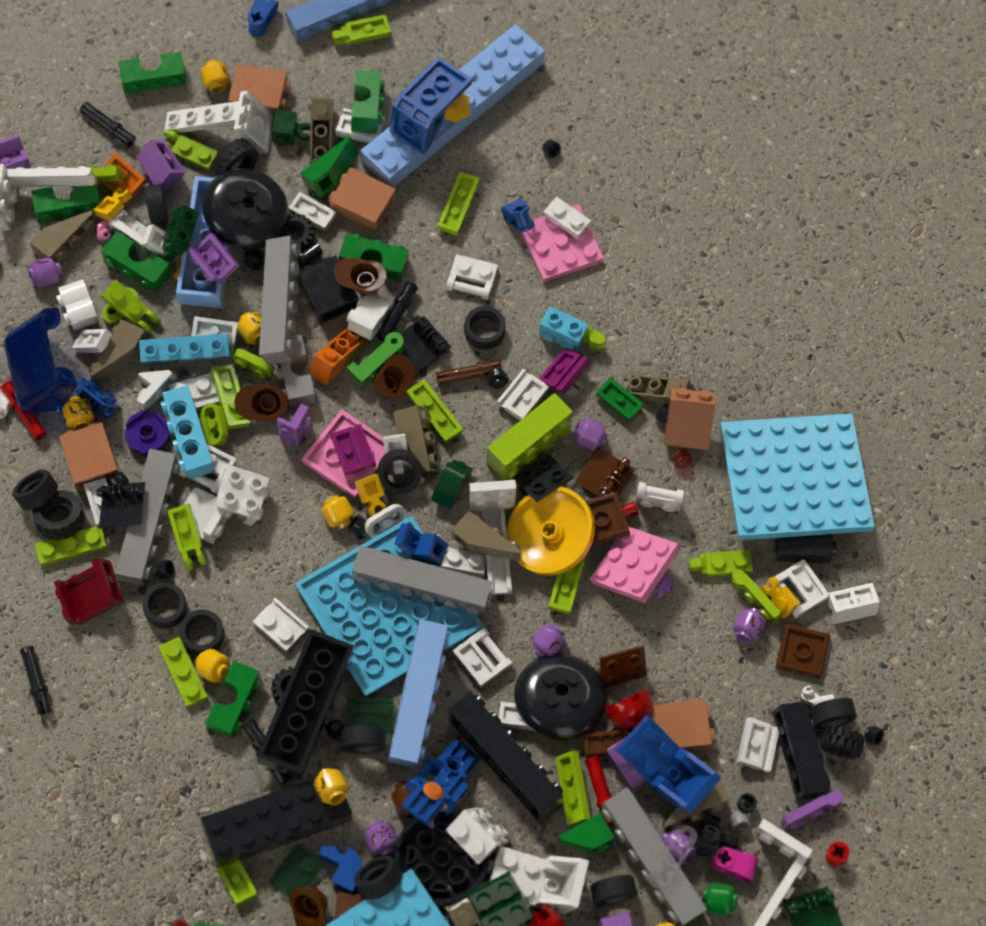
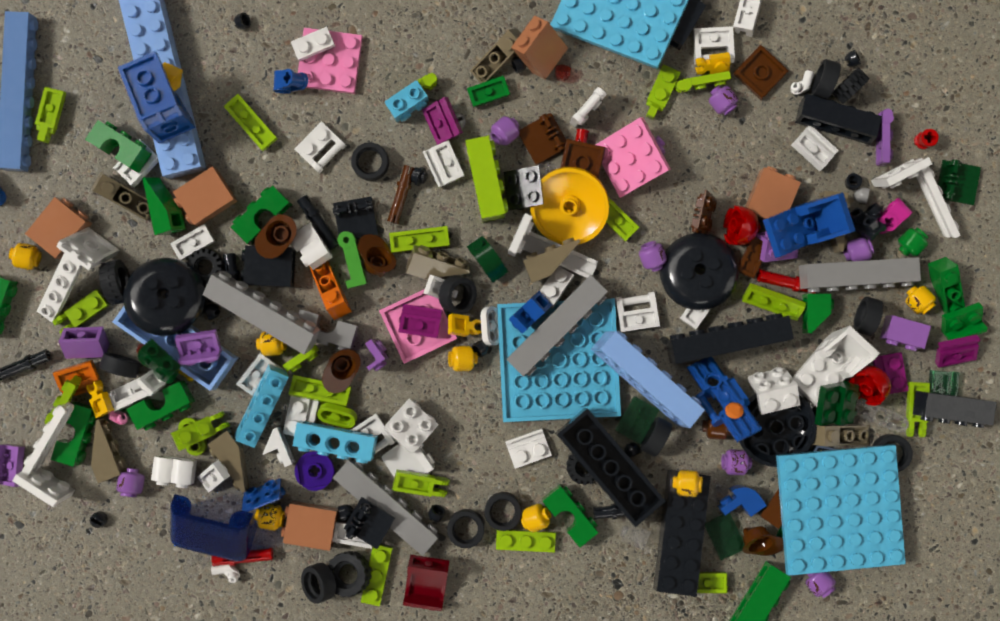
camera: 65 degrees left, 20 degrees up
(287, 127) = (105, 222): dark green brick -> none
(378, 877) = (783, 480): black tyre -> none
(682, 855) = (872, 245): clear beam -> none

